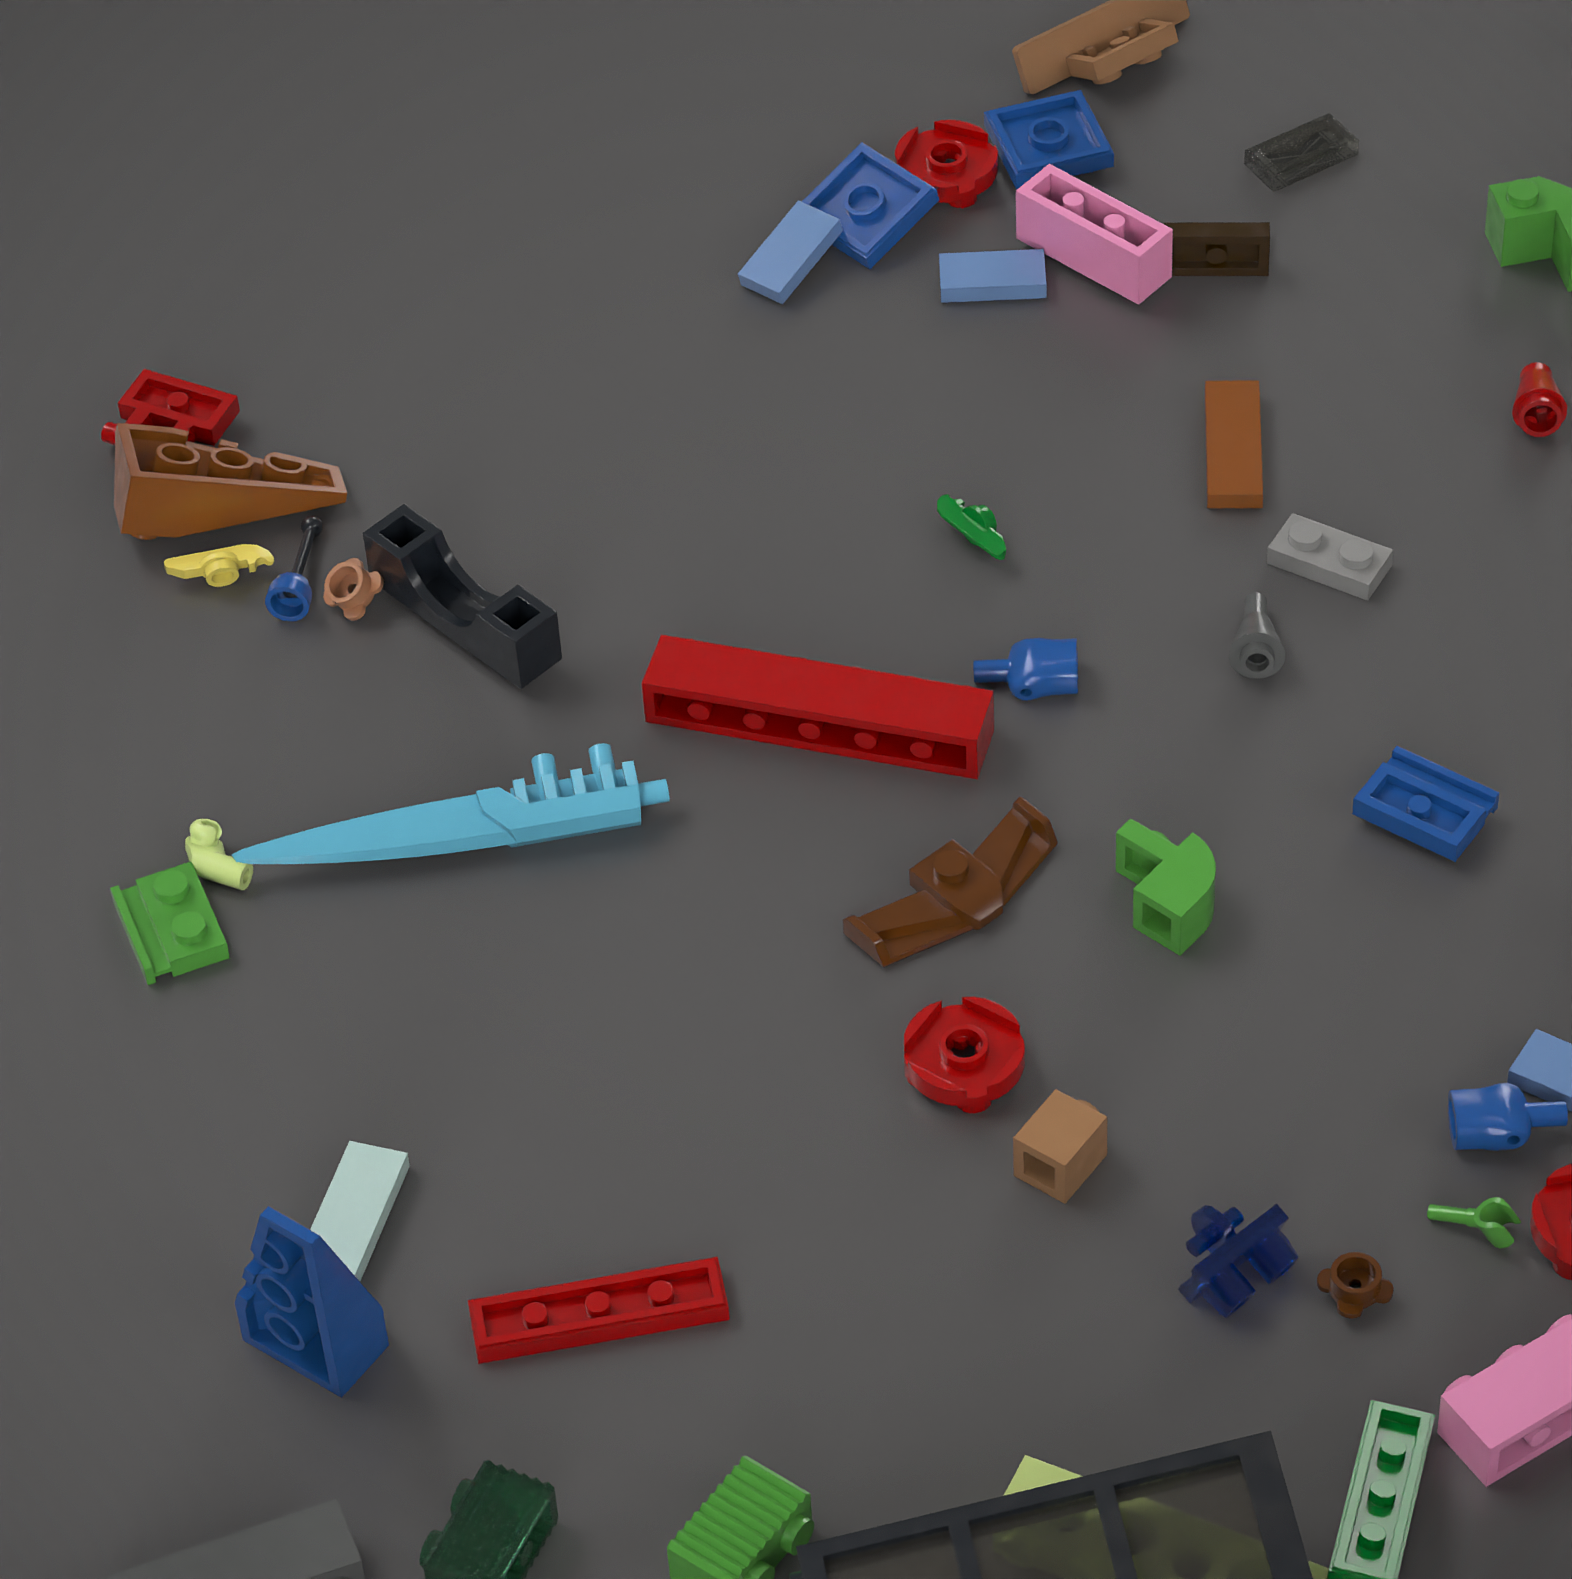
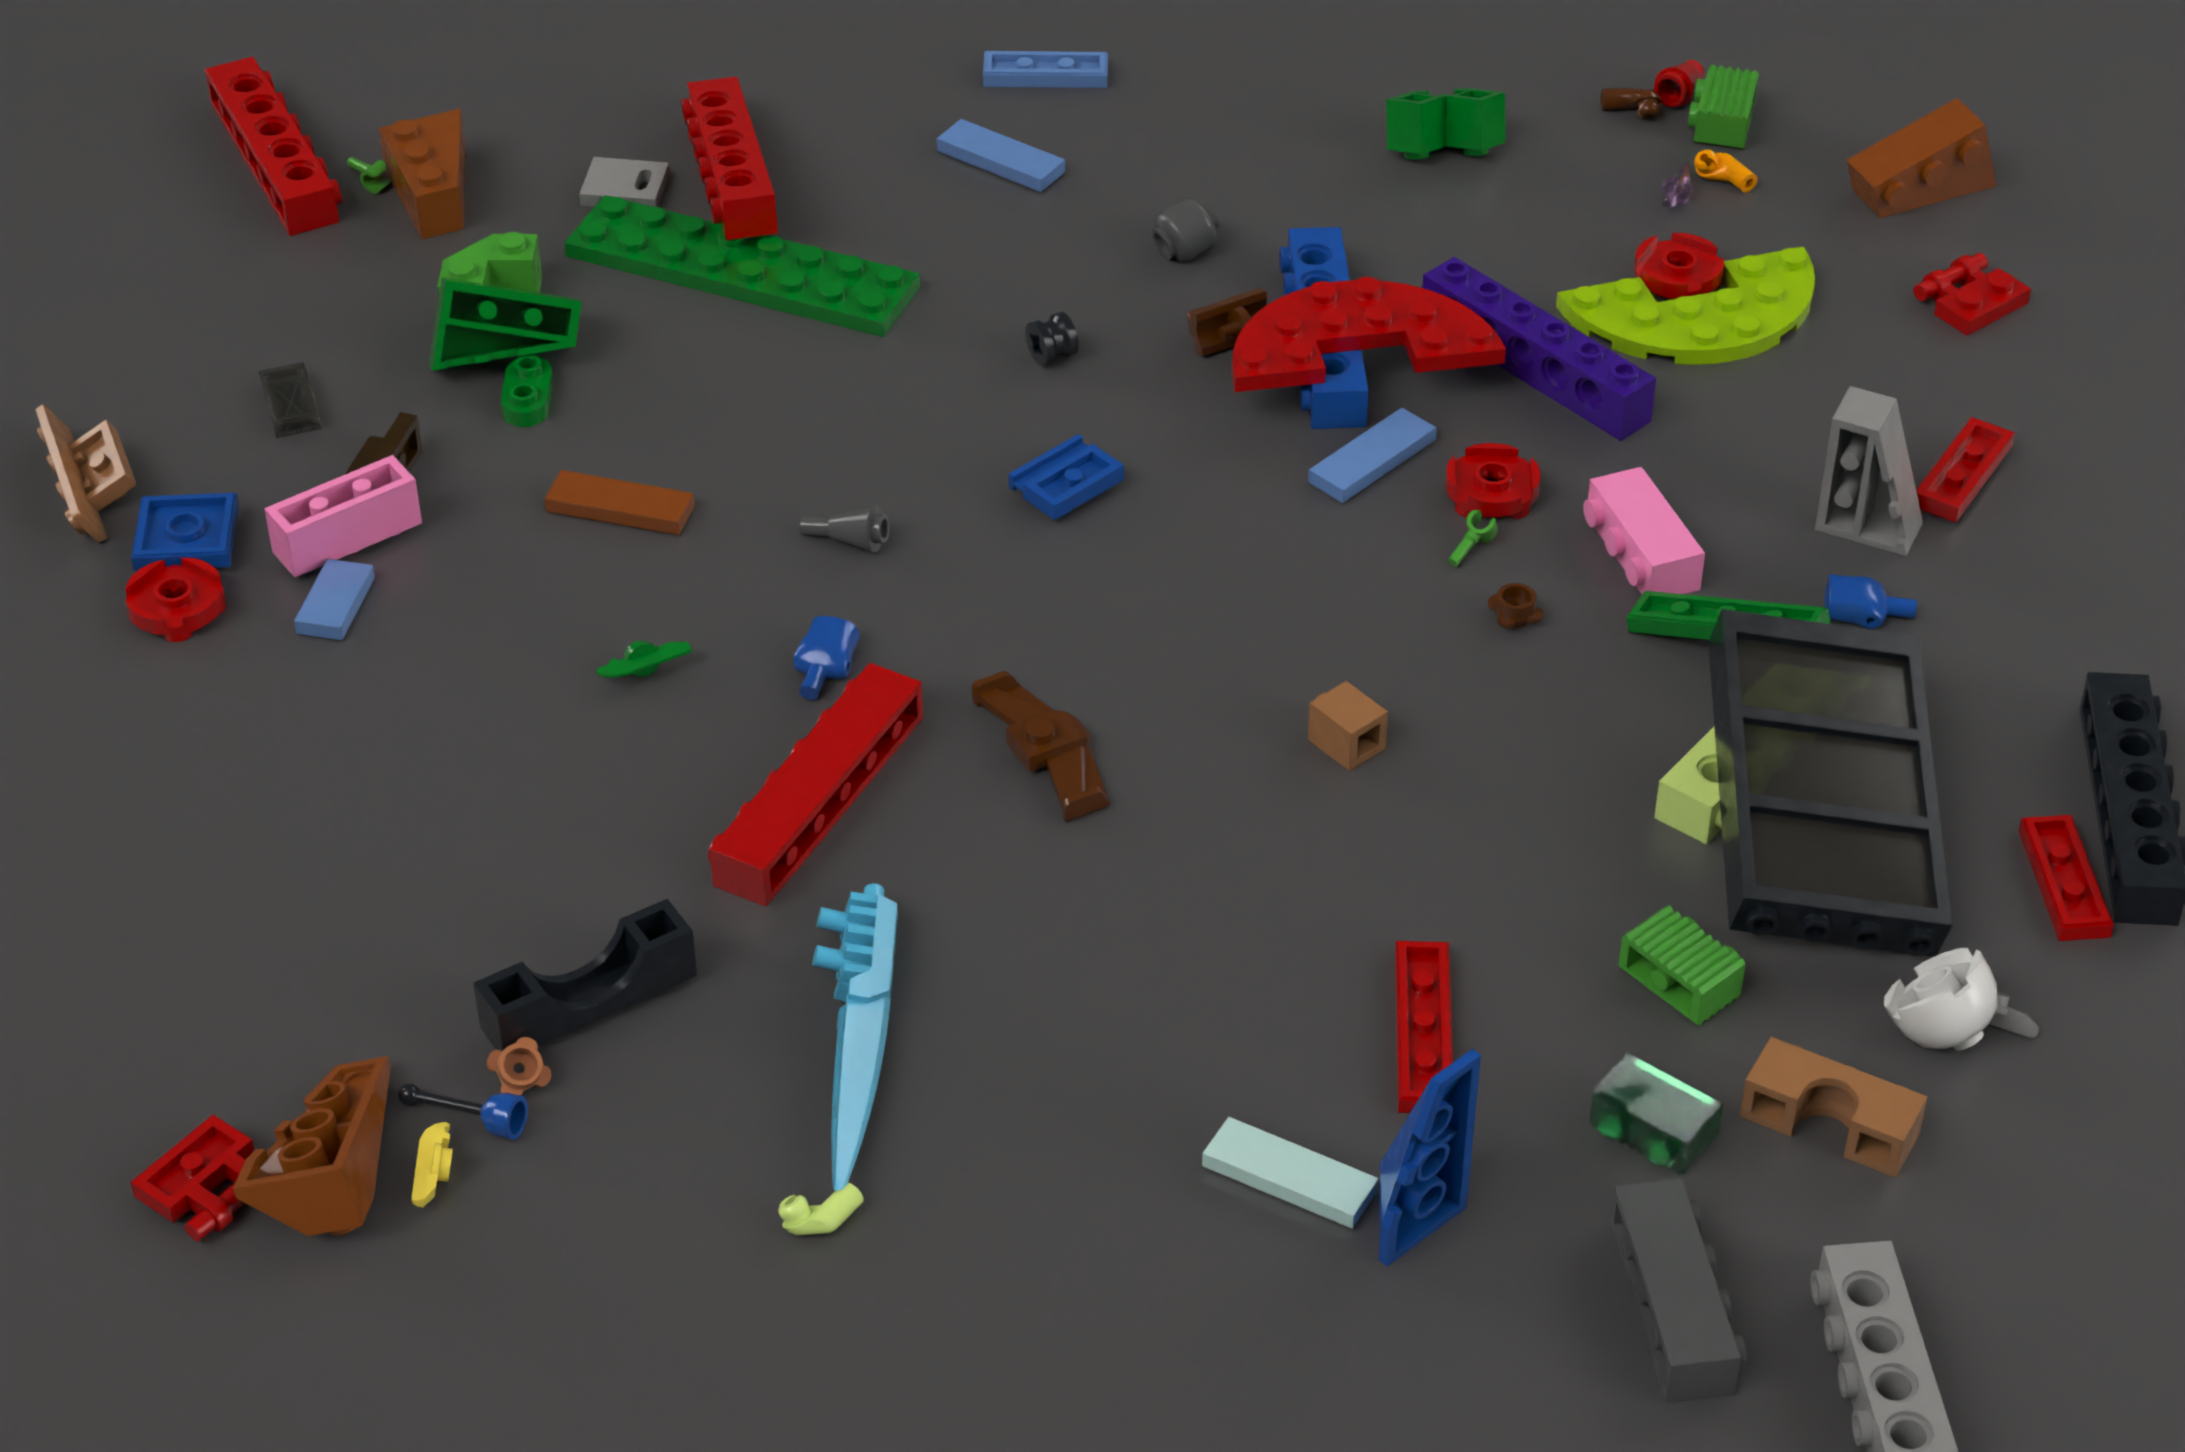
camera: 80 degrees left, 5 degrees down
(170, 923) = (886, 1257): bright green plate -> none
(790, 252) = (235, 710): medium blue tile -> none
(873, 201) = (203, 653): blue plate -> none
(971, 1080) = (1228, 786): red plate -> none
(1173, 887) = (1103, 612): bright green brick -> none
(1217, 1274) = (1478, 653): clear blue hips -> none
(1330, 556) = (773, 477): light grey plate -> none
(1395, 322) = (527, 391): none -> green plate
(1464, 253) = (498, 322): none -> green wedge
(1498, 1117) = (1384, 508): blue piece -> none
(1538, 402) = (665, 332): red cone -> none

